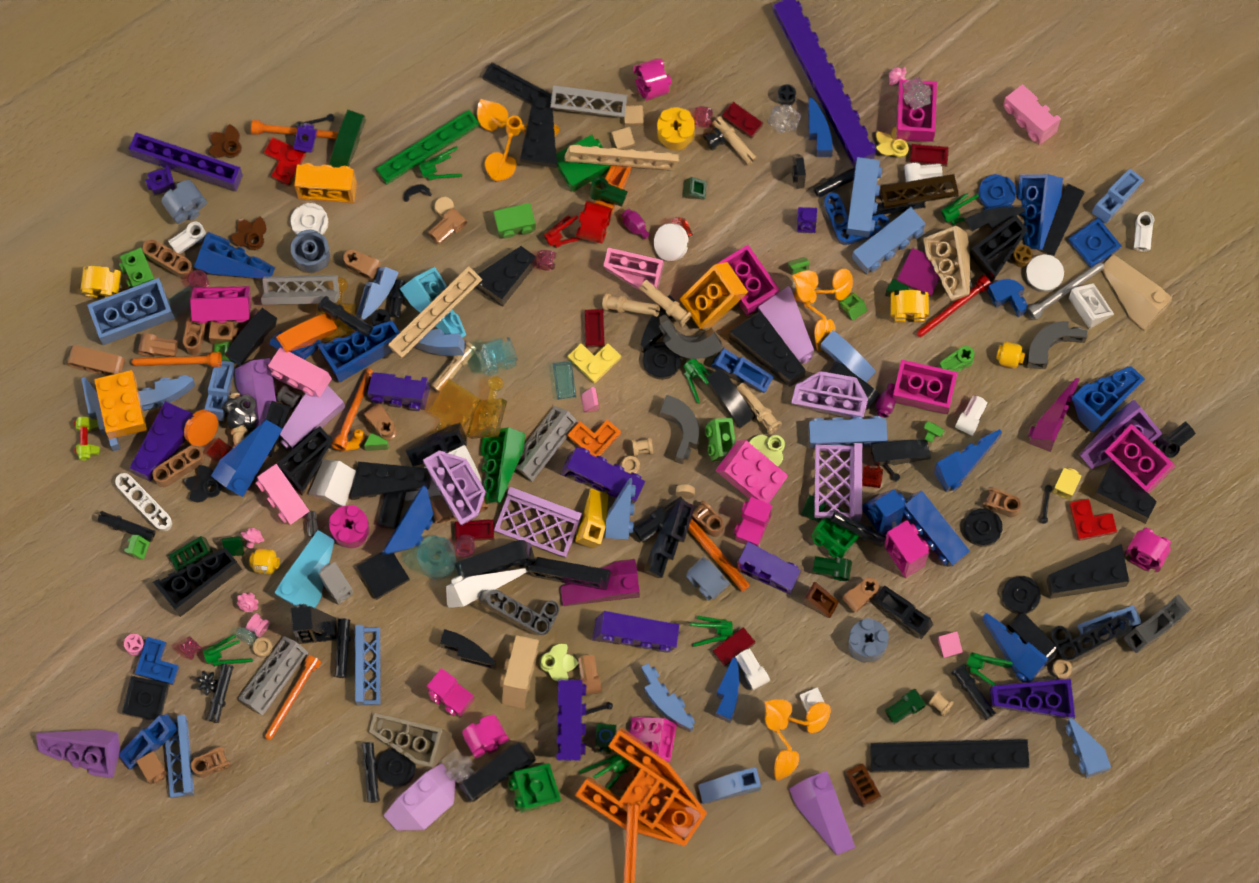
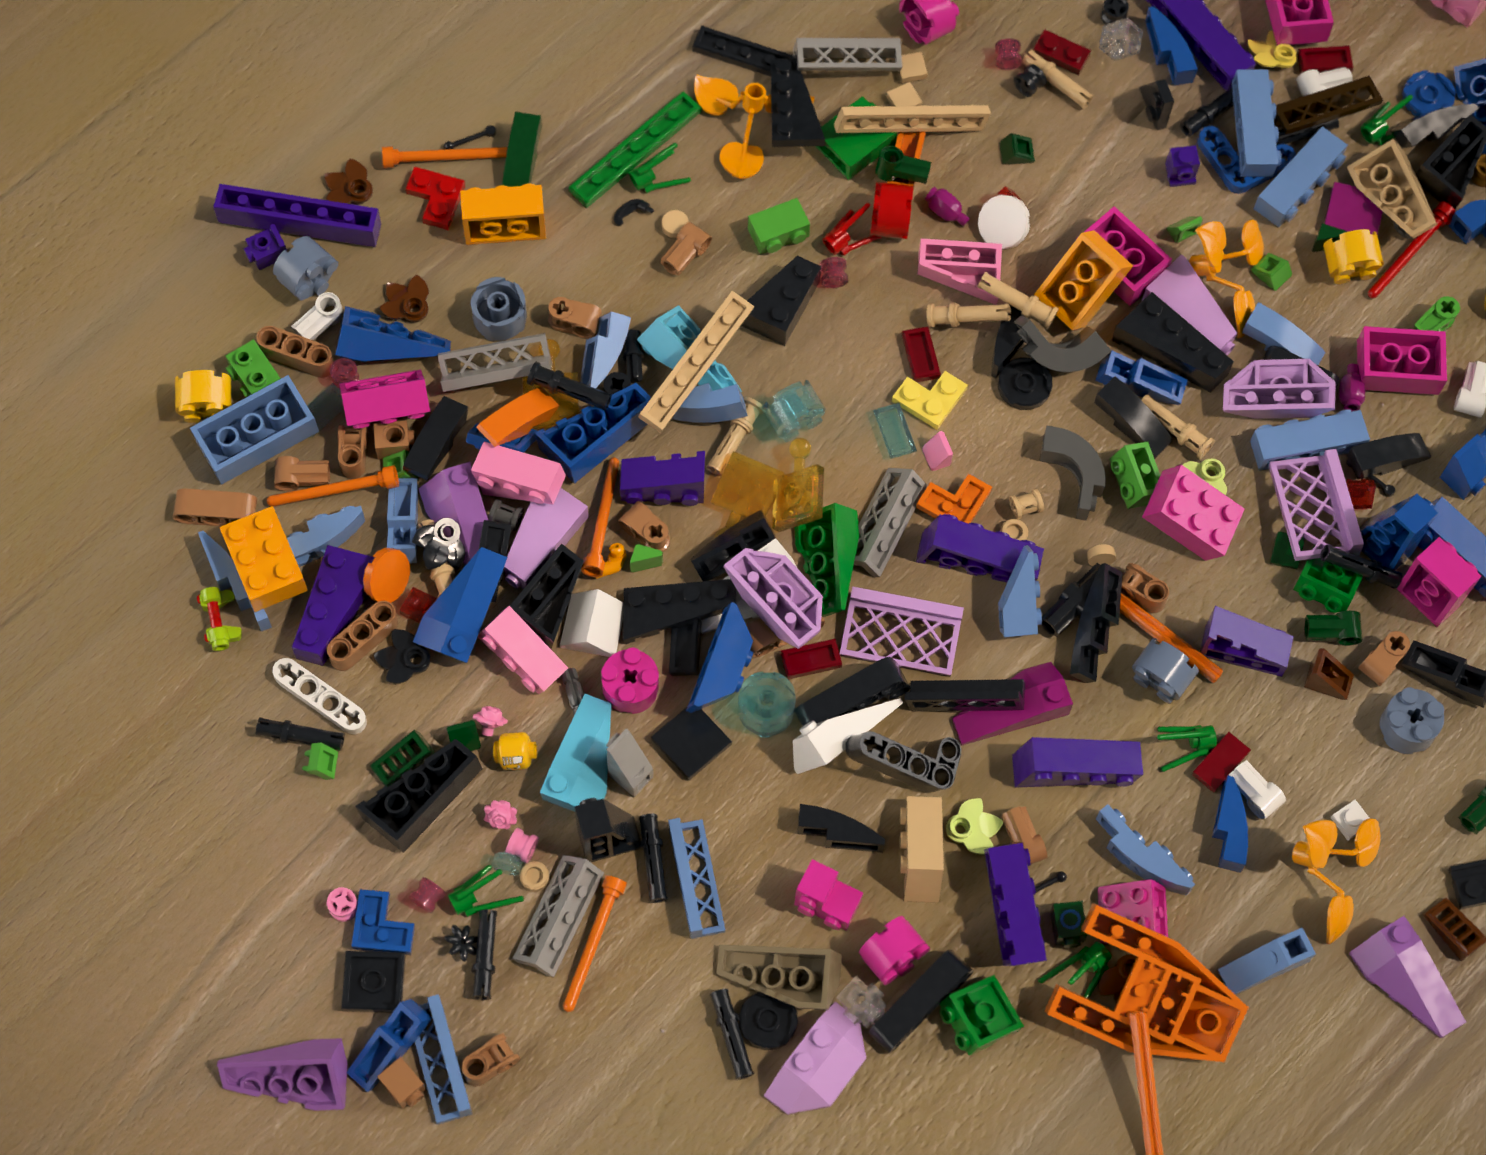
camera: 15 degrees left, 5 degrees down
(300, 144) = (464, 169): dark purple brick -> none
(309, 217) = (485, 264): white tile -> none
(465, 541) = (800, 676): clear pink wheel -> none
(593, 519) = (981, 616): yellow slope -> none
(671, 119) = (975, 73): yellow brick -> none
(695, 370) = (1076, 387): green plant -> none
(755, 520) = (1210, 578): dark pink brick -> none
(933, 431) = (1427, 417): bright green tile -> none

